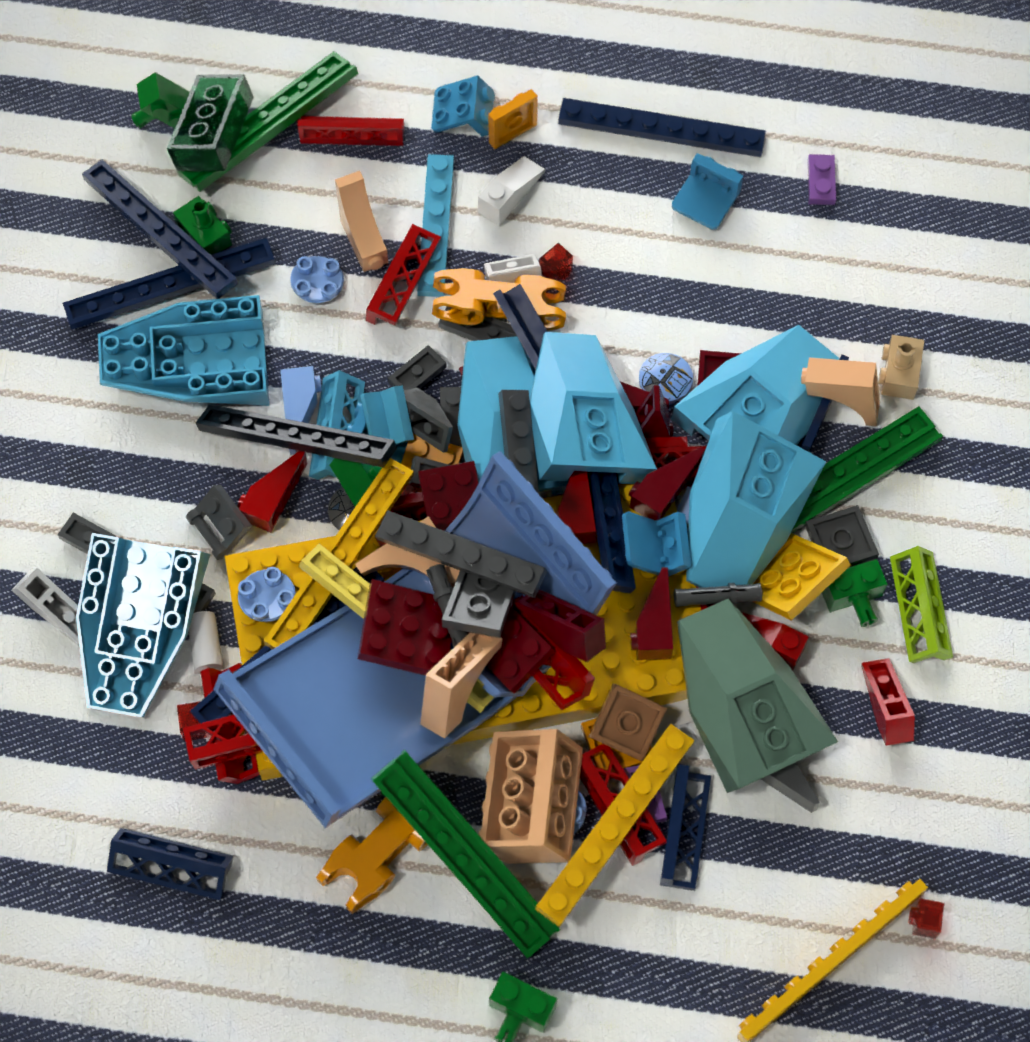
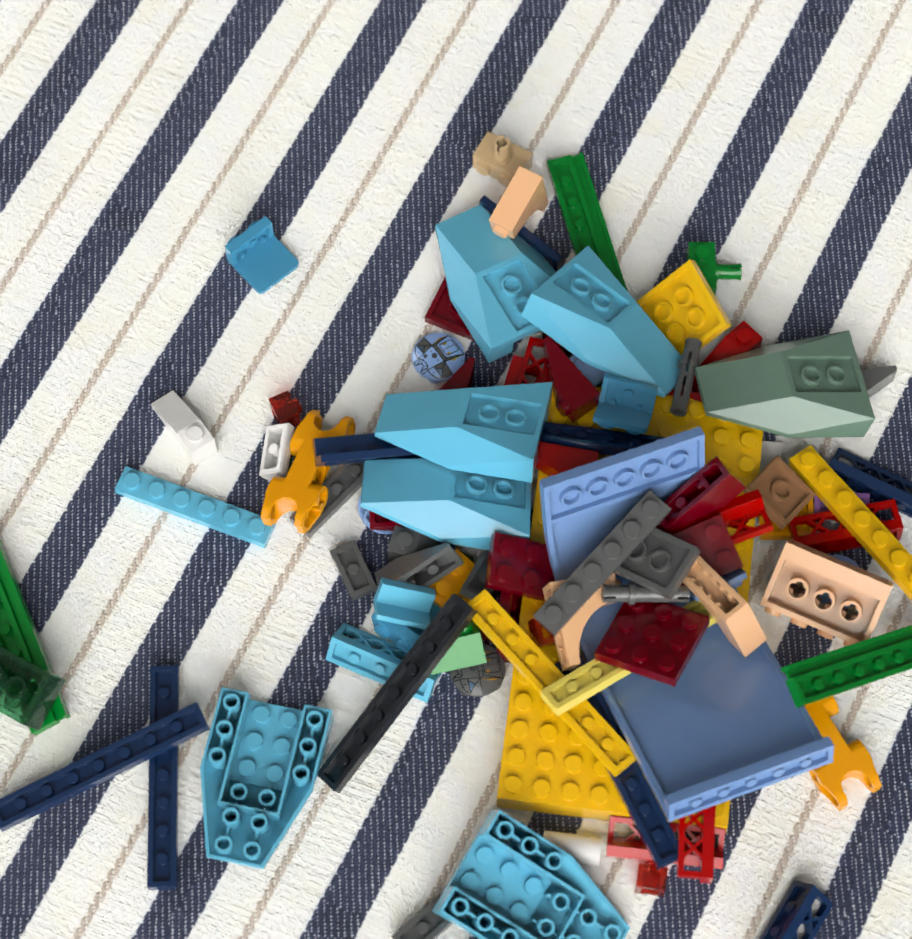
camera: 70 degrees left, 0 degrees up
(201, 224) = (111, 723): green brick -> none
(224, 516) = (448, 789): dark grey plate -> none
(265, 594) = (558, 765): light blue dish -> none
(271, 493) = (442, 747): red slope -> none
(300, 394) = (341, 686): light blue slope -> none
(316, 279) = (213, 633): light blue dish -> none
(351, 130) = (55, 551): red fence -> none
(359, 222) = (179, 572): light nougat arch -> none
(397, 272) = (238, 559): red fence -> none
(463, 104) = (73, 441): dark azure bracket -> none
(512, 118) = (112, 396): light orange plate -> none
(518, 433) = (487, 490): dark grey plate -> none
(654, 415) = (490, 368): dark red slope -> none
(654, 626) = (717, 433): dark red slope -> none
(661, 127) = (168, 275): dark blue plate -> none
(821, 179) = (282, 159): medium lavender plate -> none
(844, 534) = (649, 264): dark grey plate -> none
(889, 702) = (817, 283): red slope -> none
(929, 601) = (736, 219): lime fence -> none

